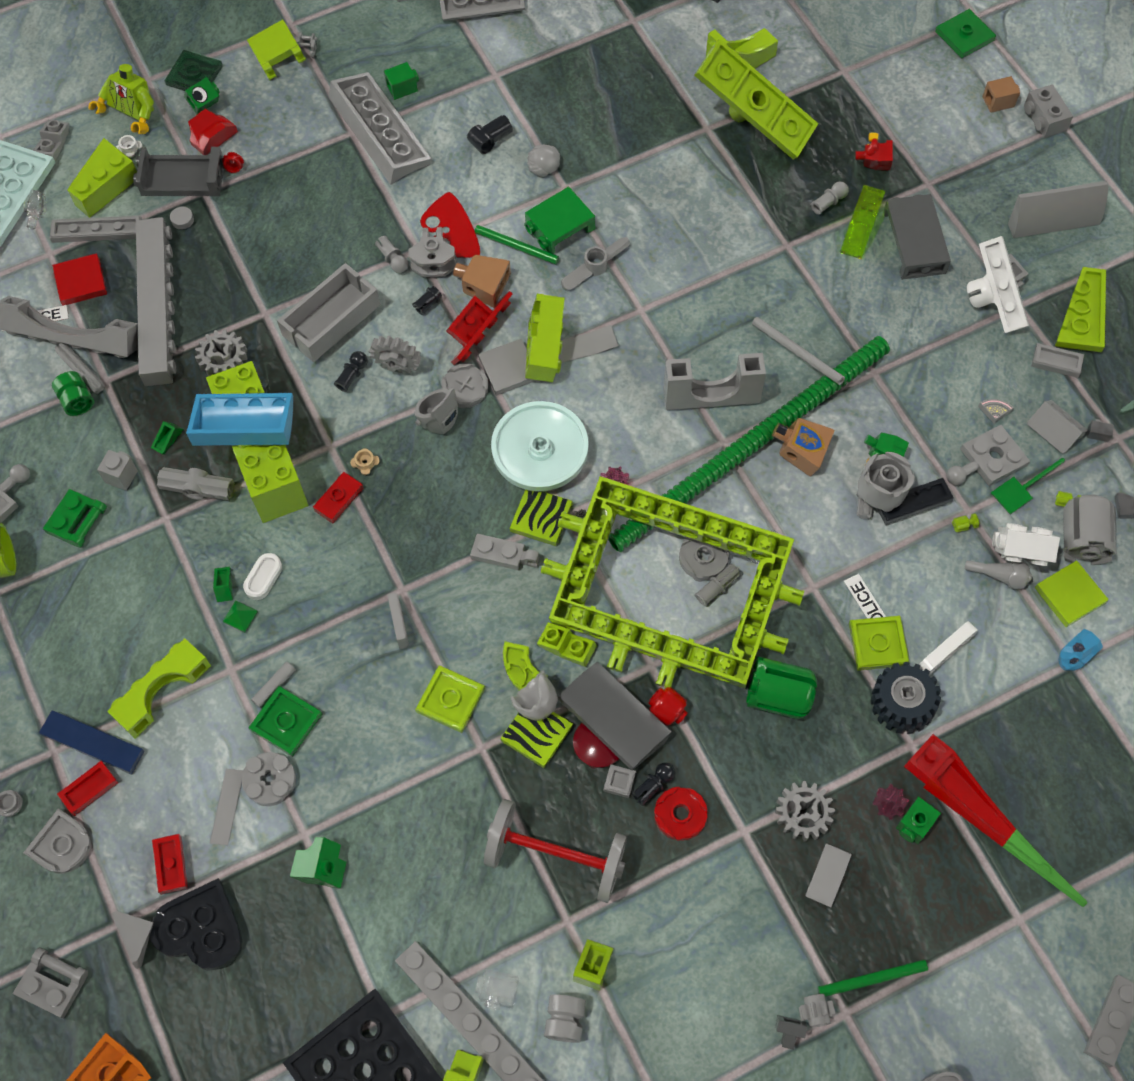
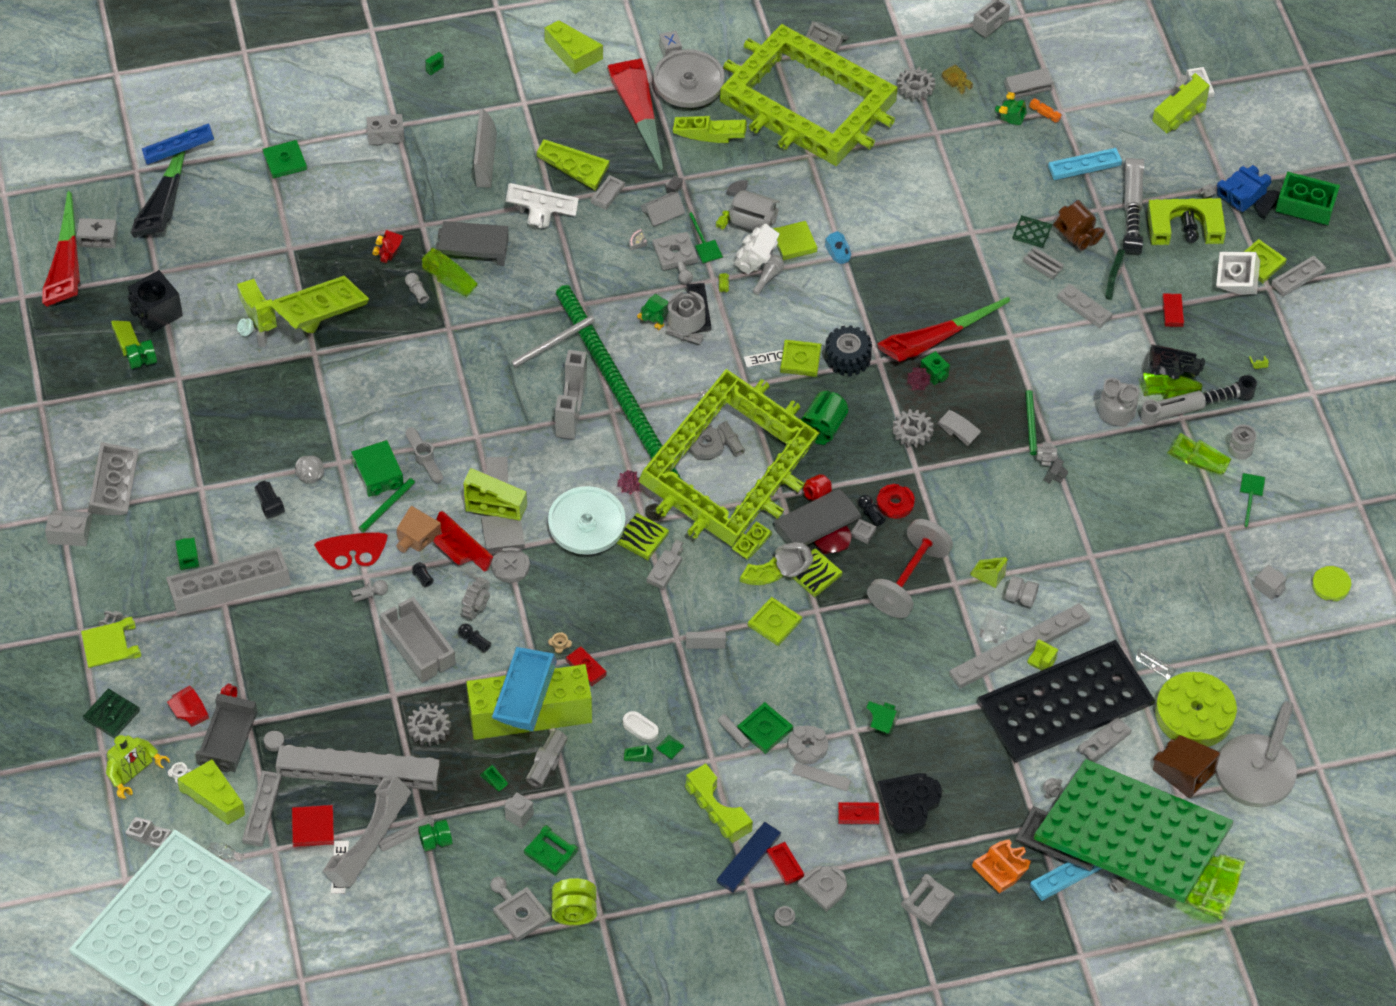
camera: 80 degrees left, 10 degrees down
(135, 935) = (908, 840): light grey slope -> none
(202, 95) = (149, 704): green brick -> none
(432, 253) = (383, 559): light grey hinge -> none
(437, 411) = (534, 579): light grey helmet -> none
(804, 444) = (636, 357): medium nougat torso -> none
(948, 647) = (816, 317): white beam -> none
(1001, 94) = (358, 153): medium nougat brick -> none

